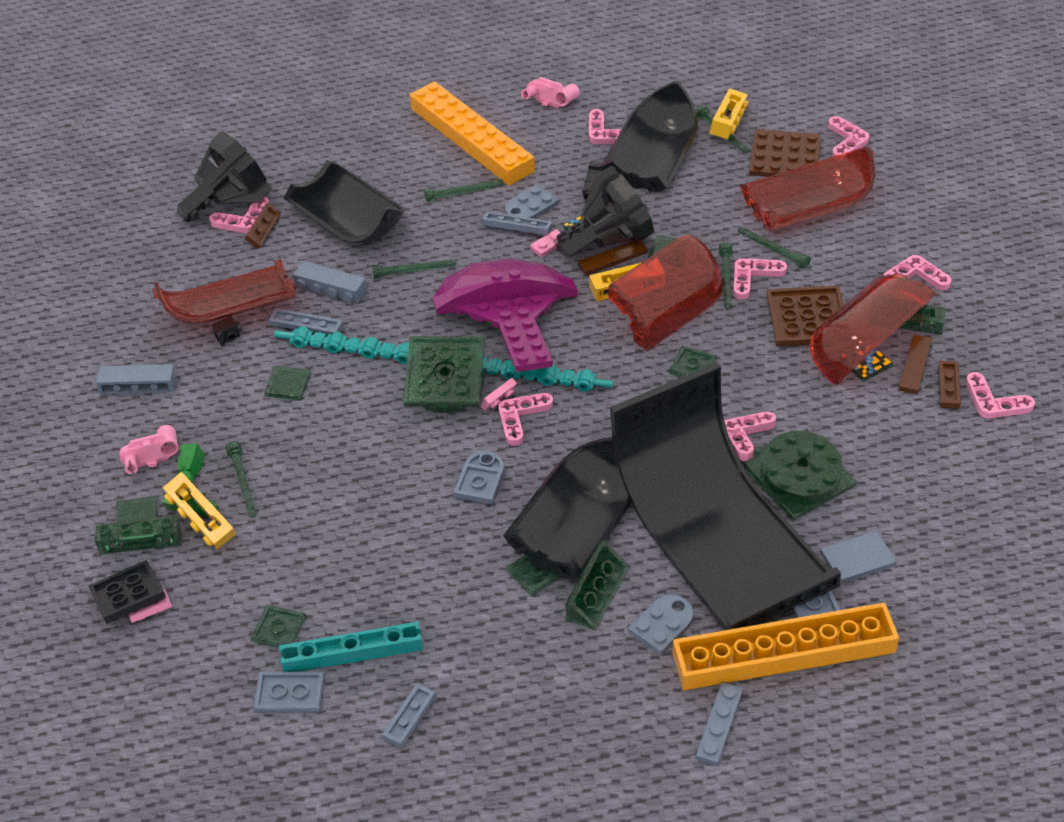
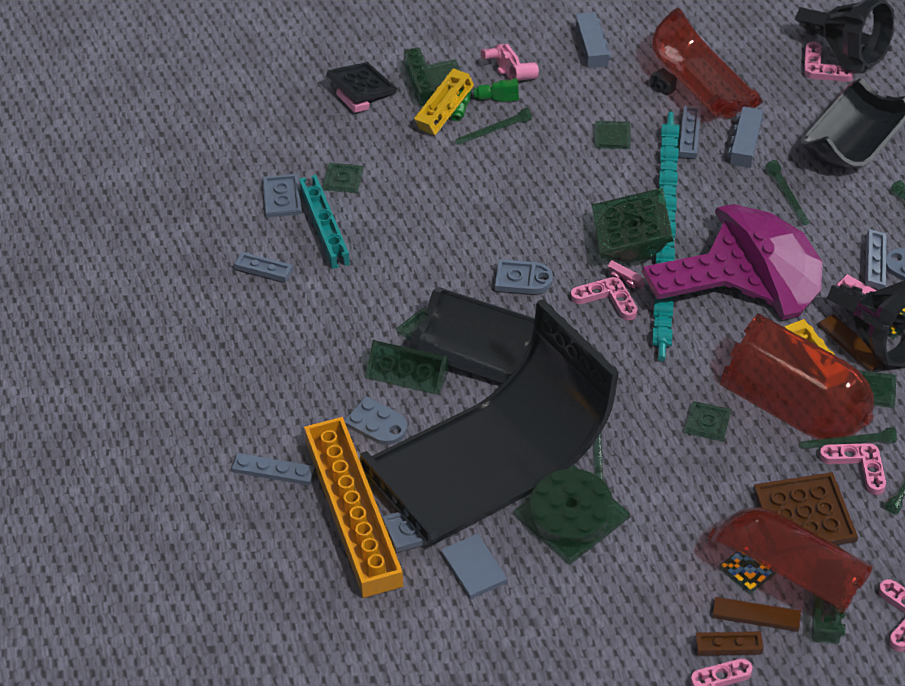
camera: 80 degrees right, 0 degrees up
(262, 225) = (812, 78): reddish brown plate -> none
(738, 430) = (617, 460): bright pink beam -> none

